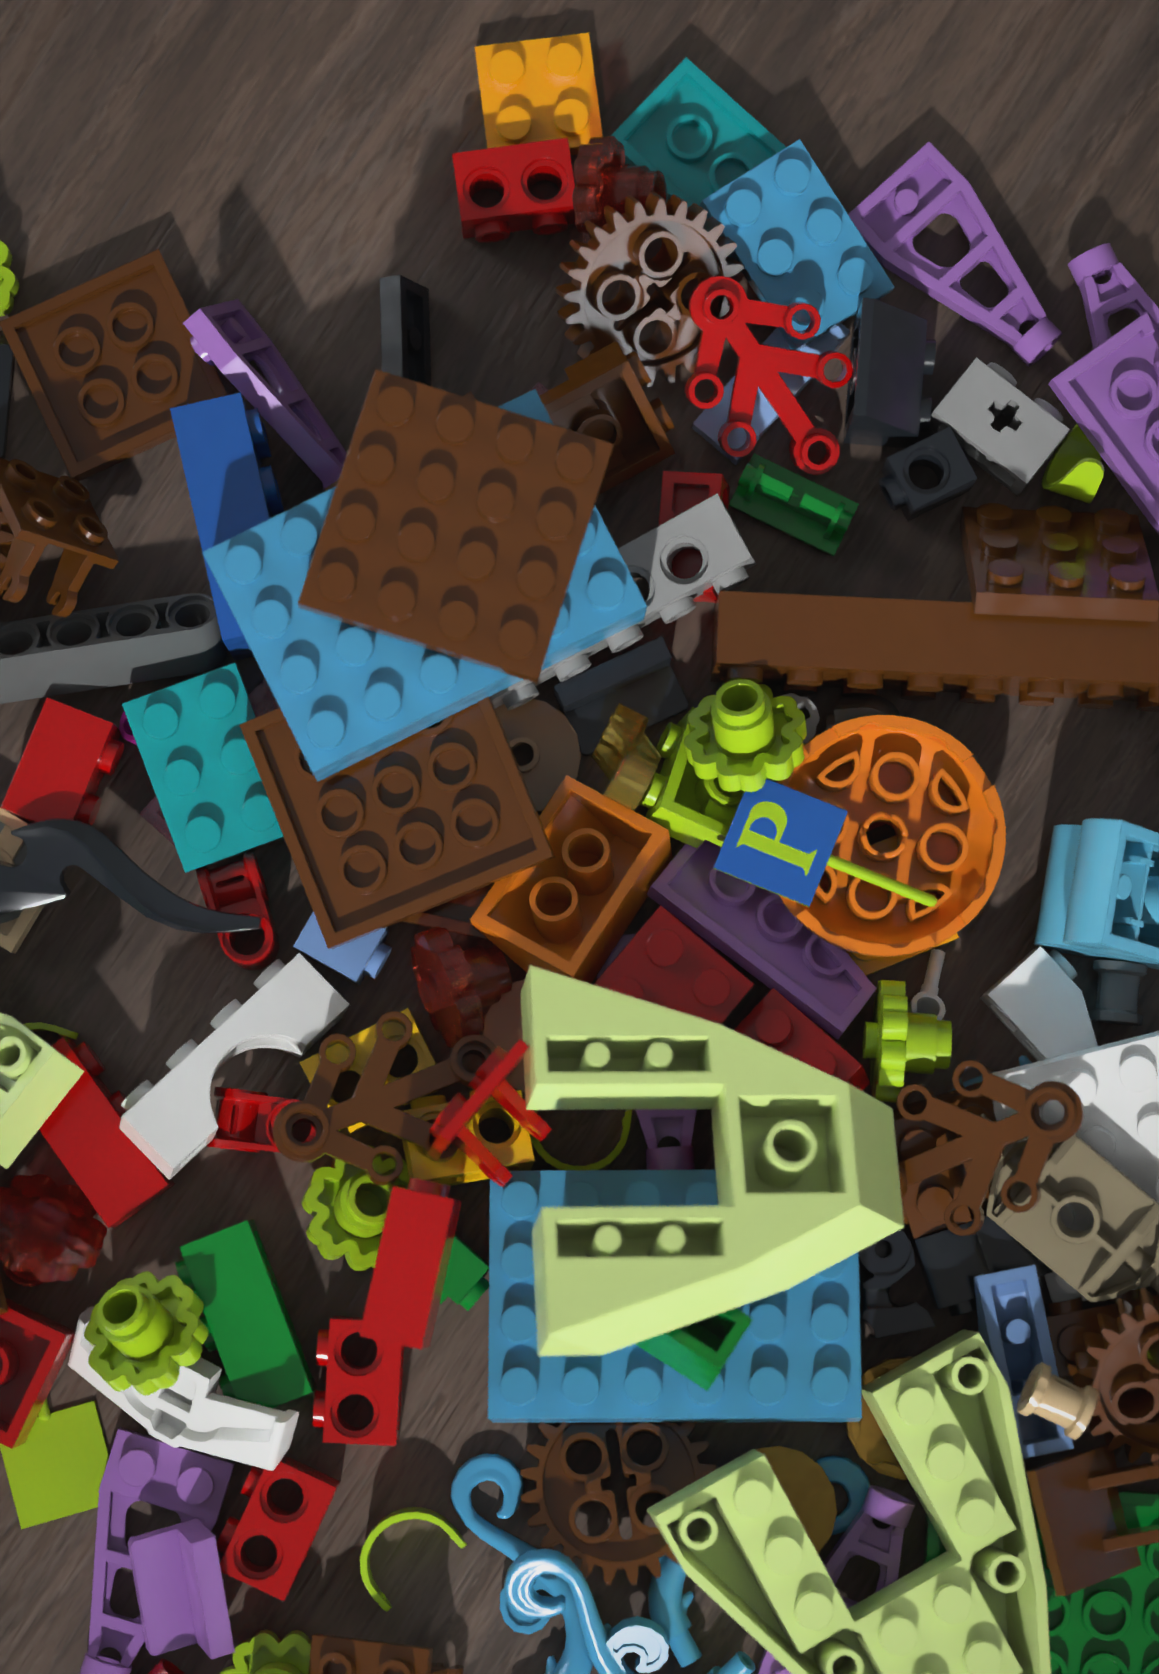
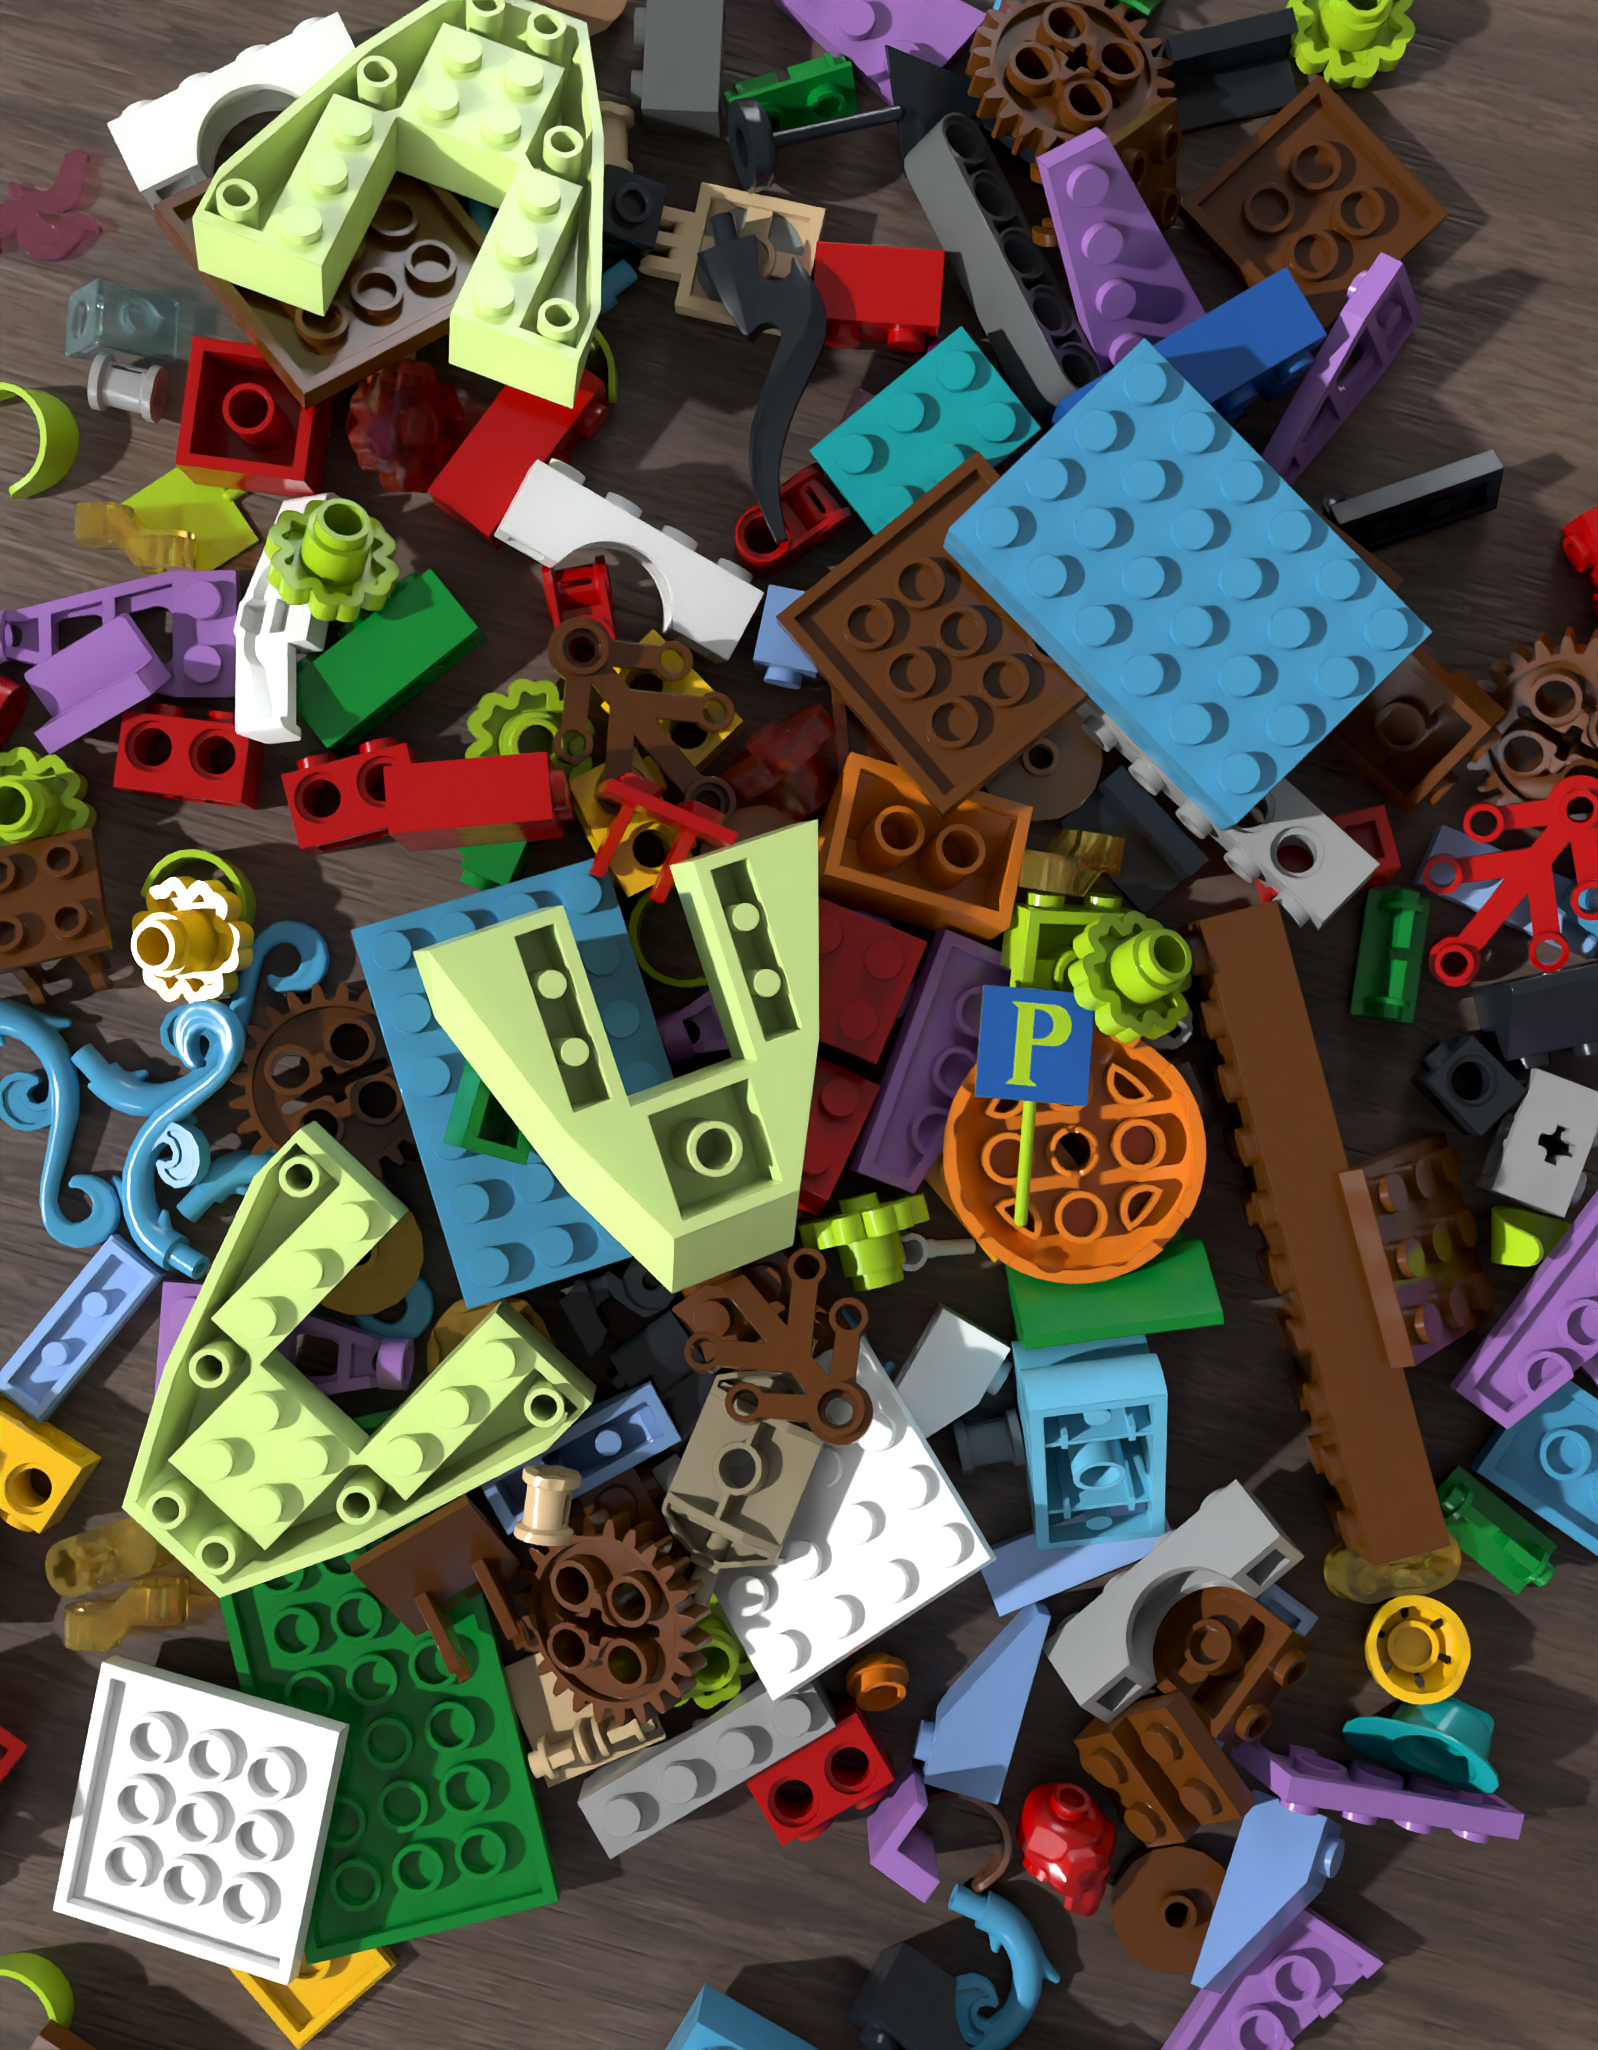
camera: 80 degrees right, 5 degrees up
(45, 1521) = (119, 528): none -> clear yellow piece
(112, 551) = (1112, 251): none -> medium lavender wing
(444, 1575) = (191, 940): none -> yellow plant
(455, 526) = (1258, 591): reddish brown plate -> none
(1034, 804) = (1159, 1296): none -> green slope

